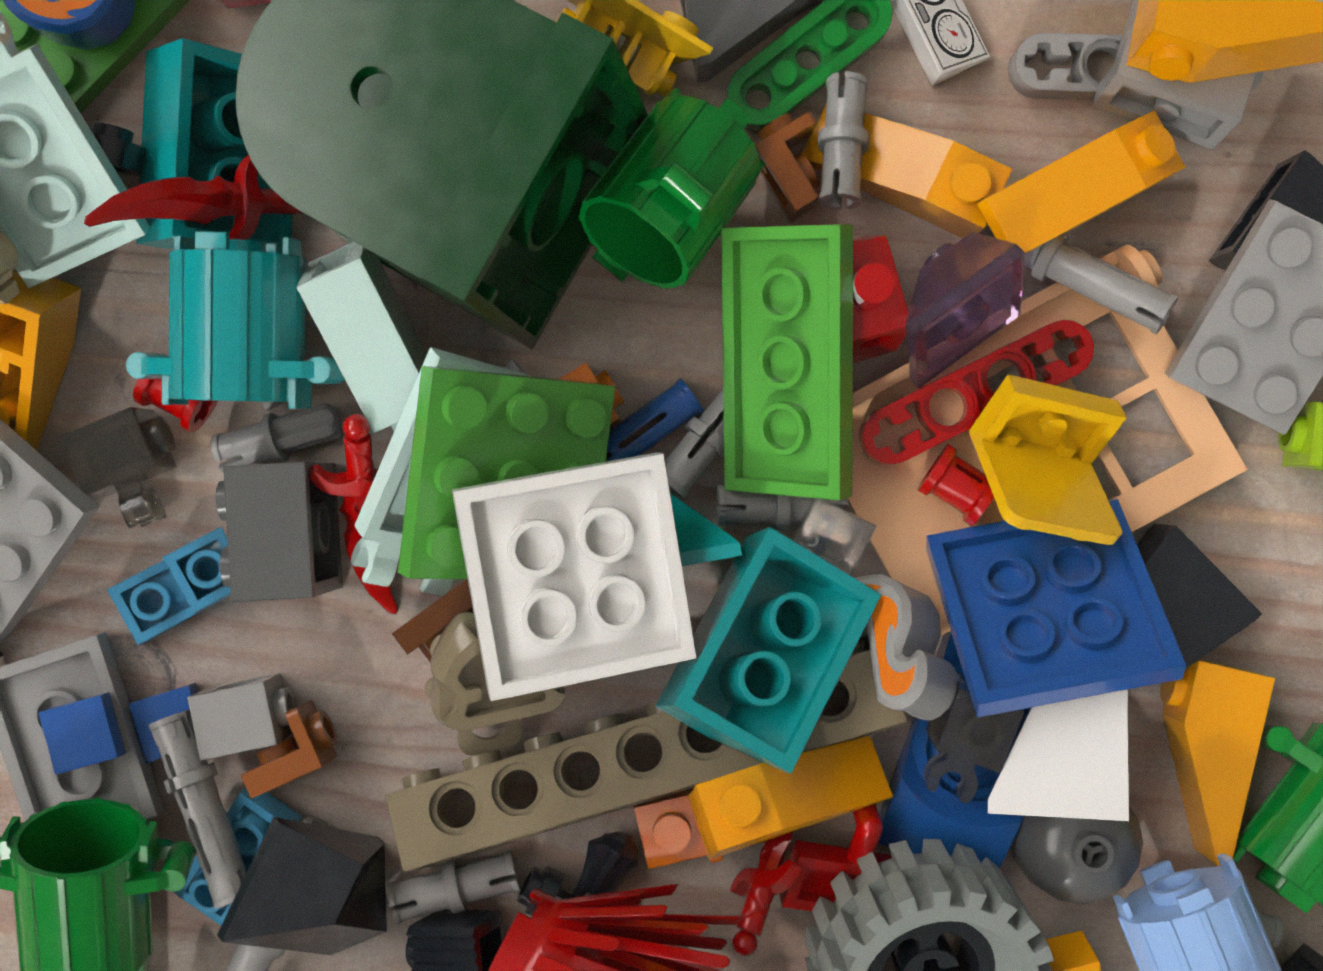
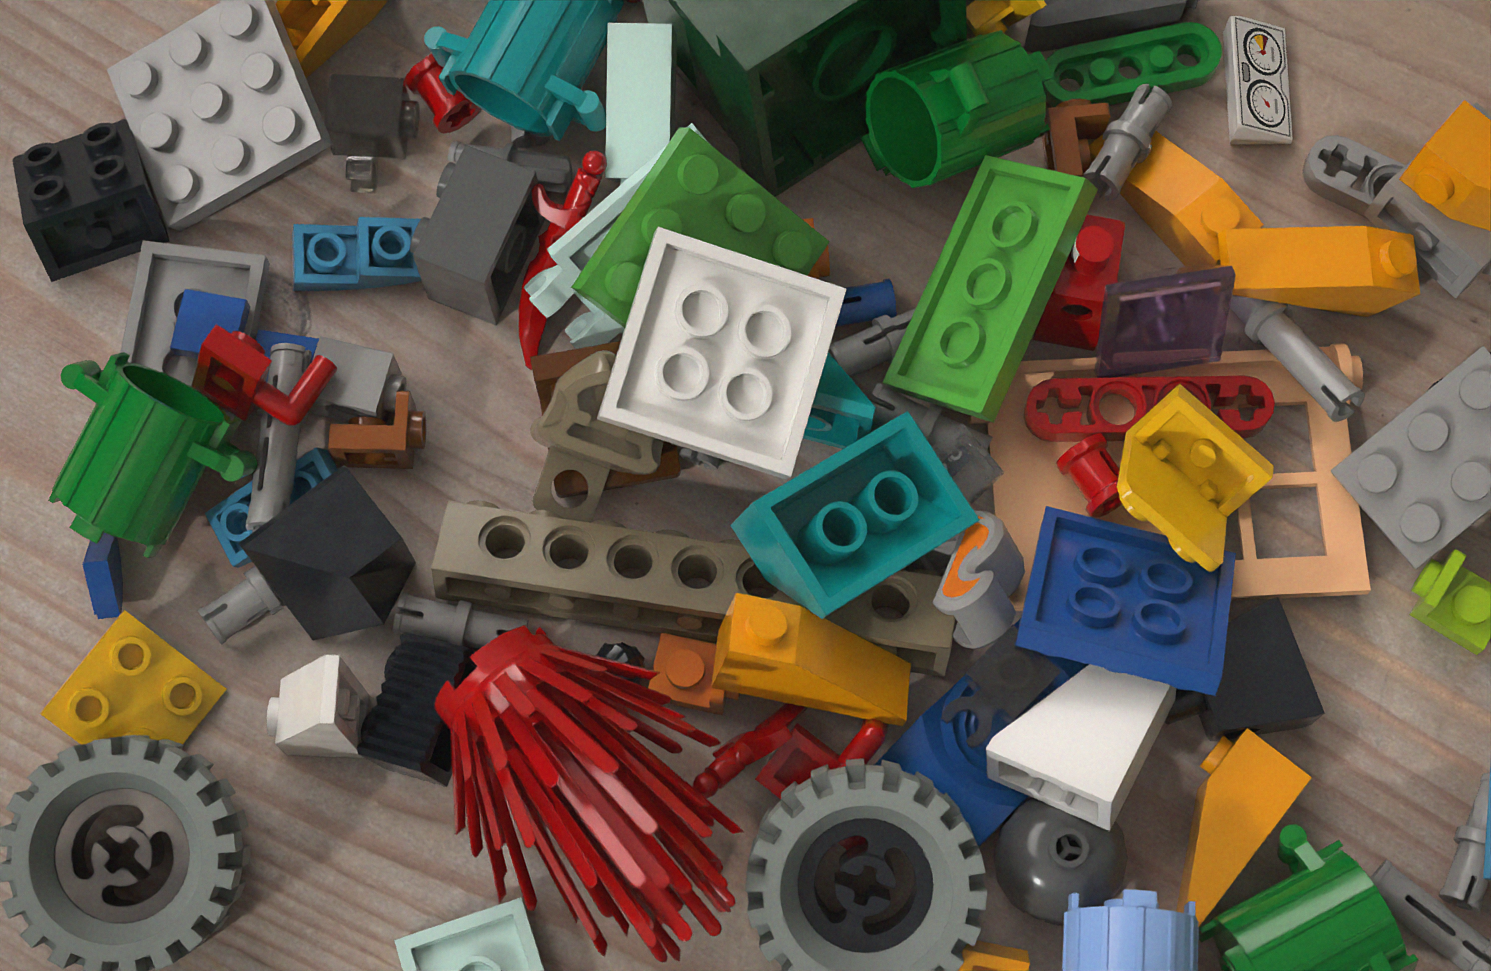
camera: 25 degrees right, 15 degrees down
(132, 785) = (235, 373): none -> red plate

